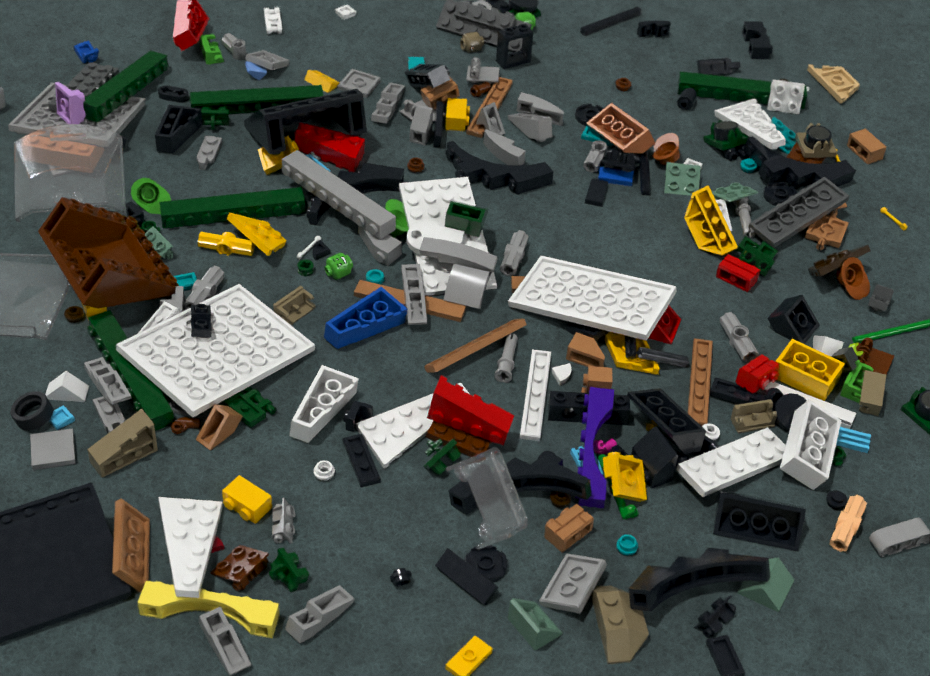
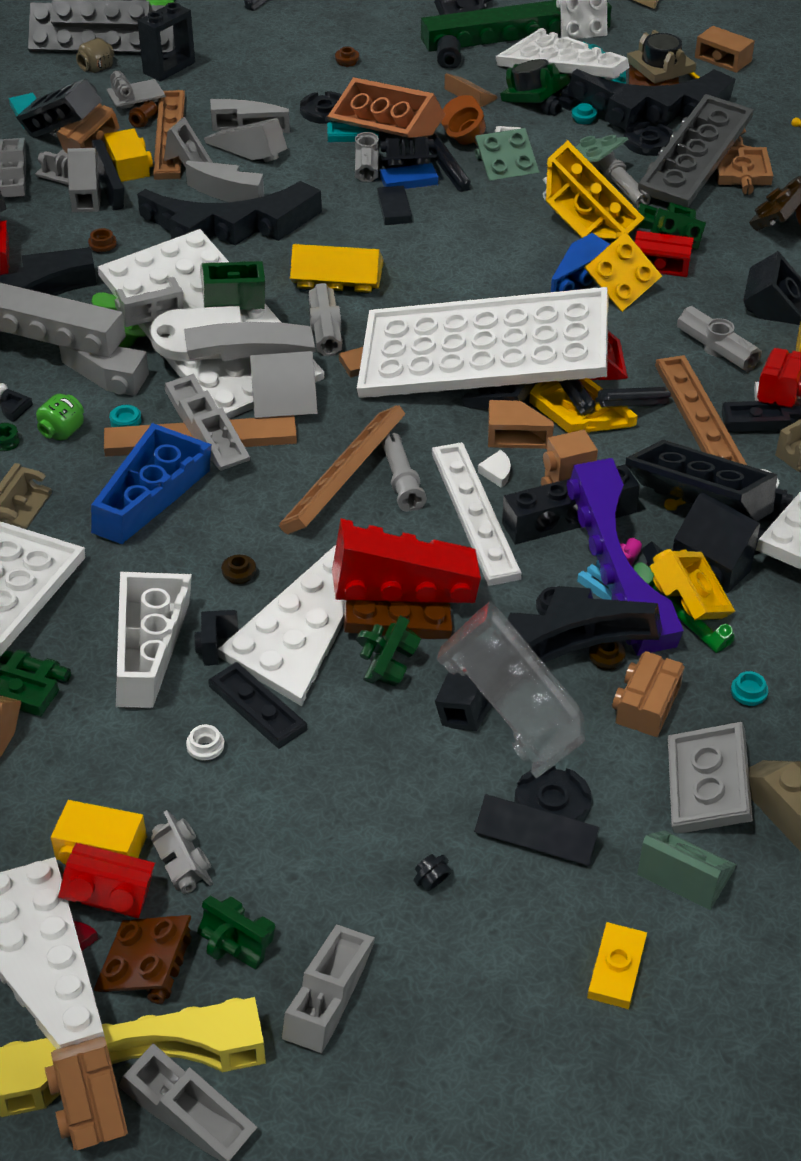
camera: 20 degrees left, 0 degrees up
(179, 617) = (87, 1092): none -> medium nougat brick
(238, 521) = (106, 880): none -> red brick
(390, 383) = (238, 568): none -> dark brown plate
(414, 216) = (149, 305): none -> light grey hinge
(537, 223) = (336, 267): none -> yellow slope
(685, 264) = (571, 271): none -> blue slope
(686, 128) = (461, 86): none -> medium nougat slope
(703, 278) = (623, 271): none -> yellow hinge

